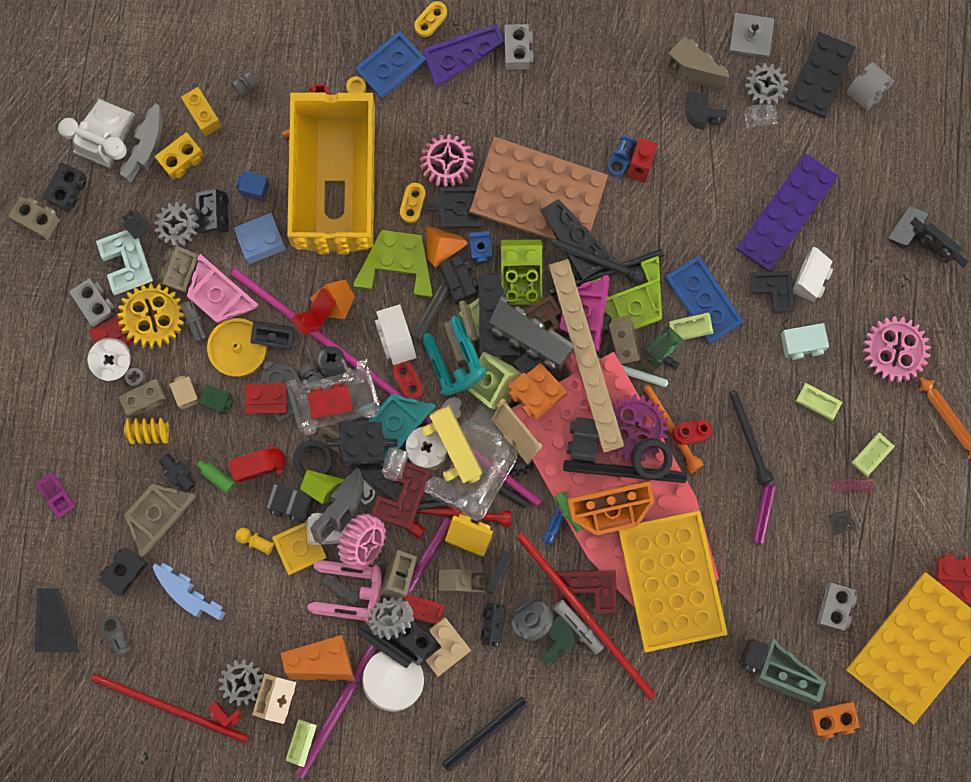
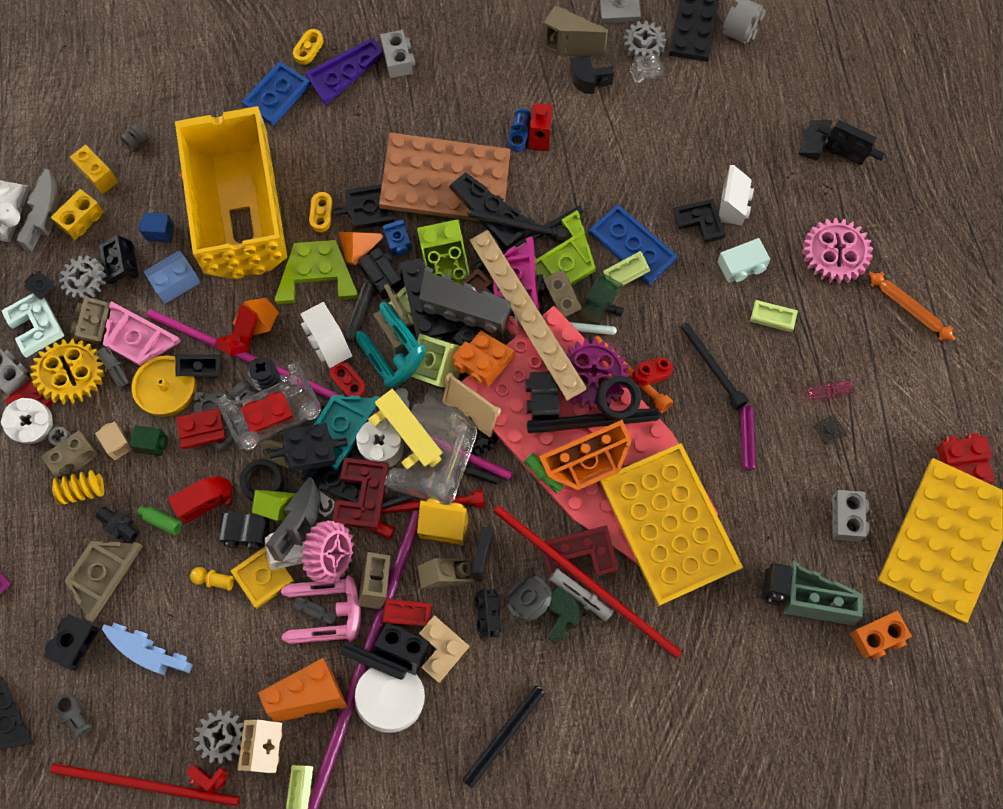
camera: 10 degrees left, 10 degrees down
(390, 617) = (373, 626): light grey gear -> none
(394, 464) = (347, 461): clear brick -> none
(439, 160) = (336, 163): bright pink gear -> none
(553, 527) = (531, 497): blue axle -> none
(787, 212) = (693, 149): dark purple plate -> none
(872, 454) = (842, 355): yellowish green plate -> none

